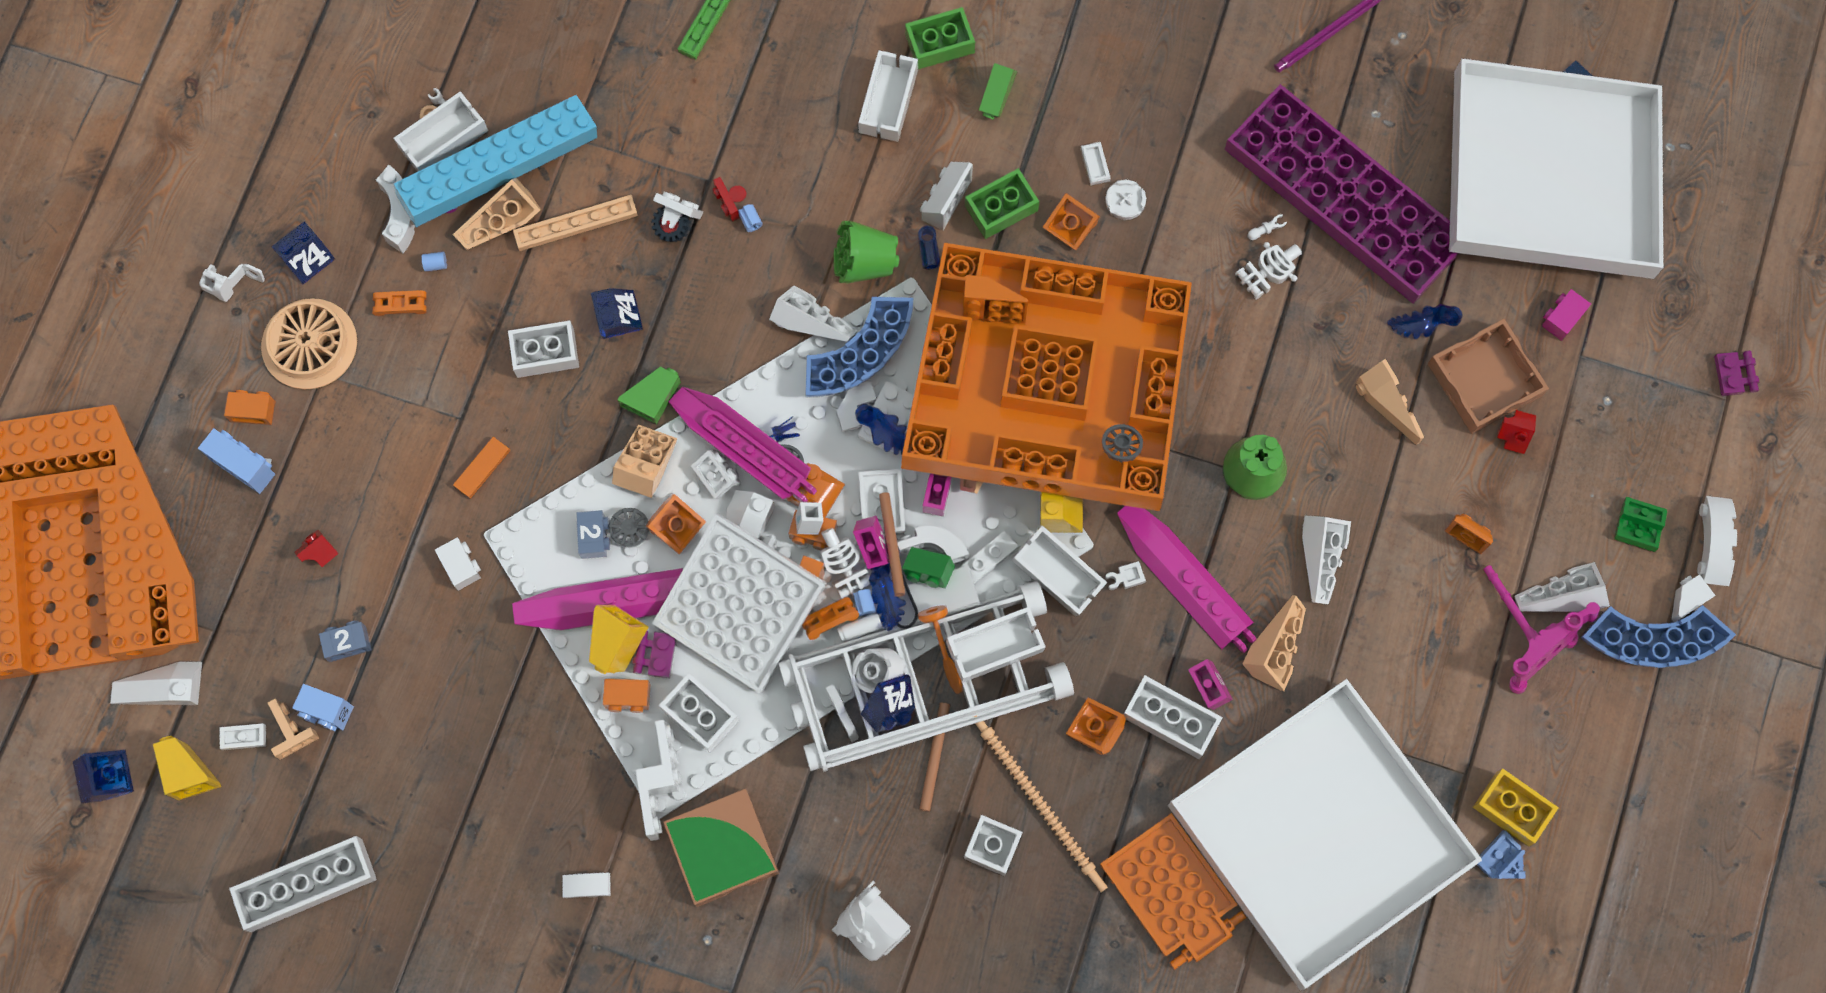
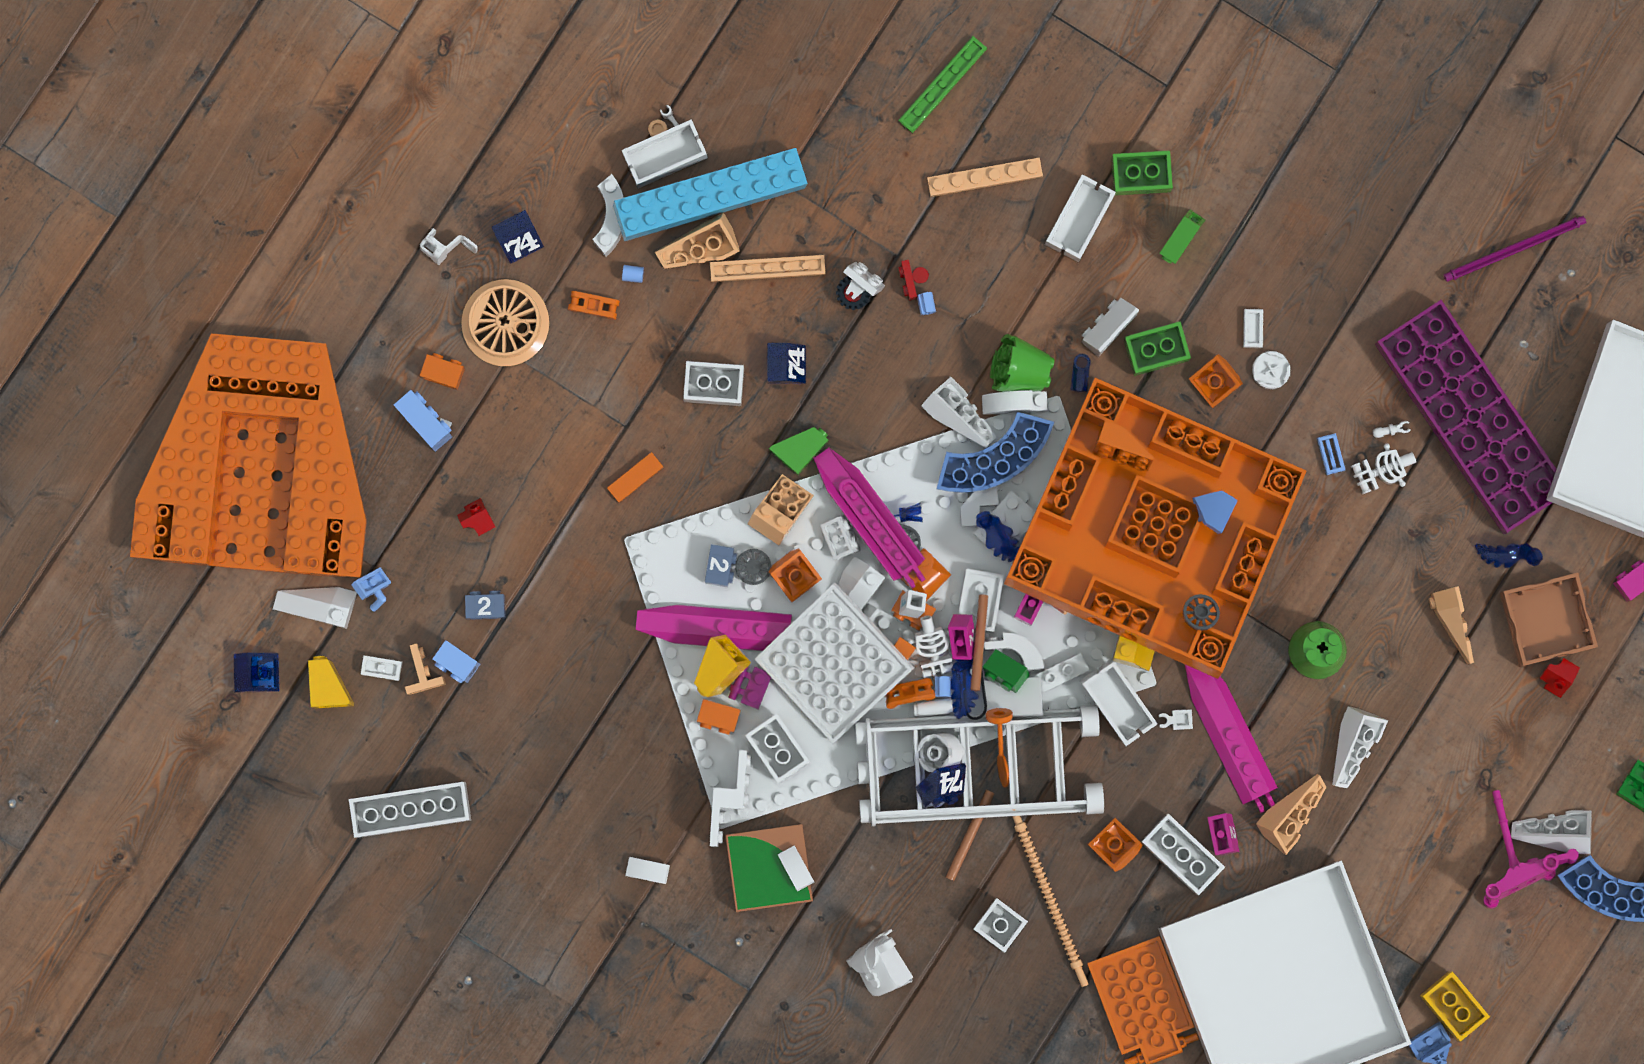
camera: 15 degrees right, 10 degrees up
(215, 647) = (372, 584): none -> light blue plate
(458, 563) = (597, 561): white brick -> none
(749, 838) = (796, 868): none -> white slope
(780, 83) = (985, 177): none -> light nougat plate
(842, 714) = (900, 779): white tile -> none
(860, 291) = (1014, 402): none -> white arch
(995, 644) = (1045, 757): white piece -> none
(1107, 338) = (1215, 509): none -> medium blue slope
(1219, 282) = (1323, 454): none -> light blue tile
(1470, 533) = (1489, 758): orange slope -> none

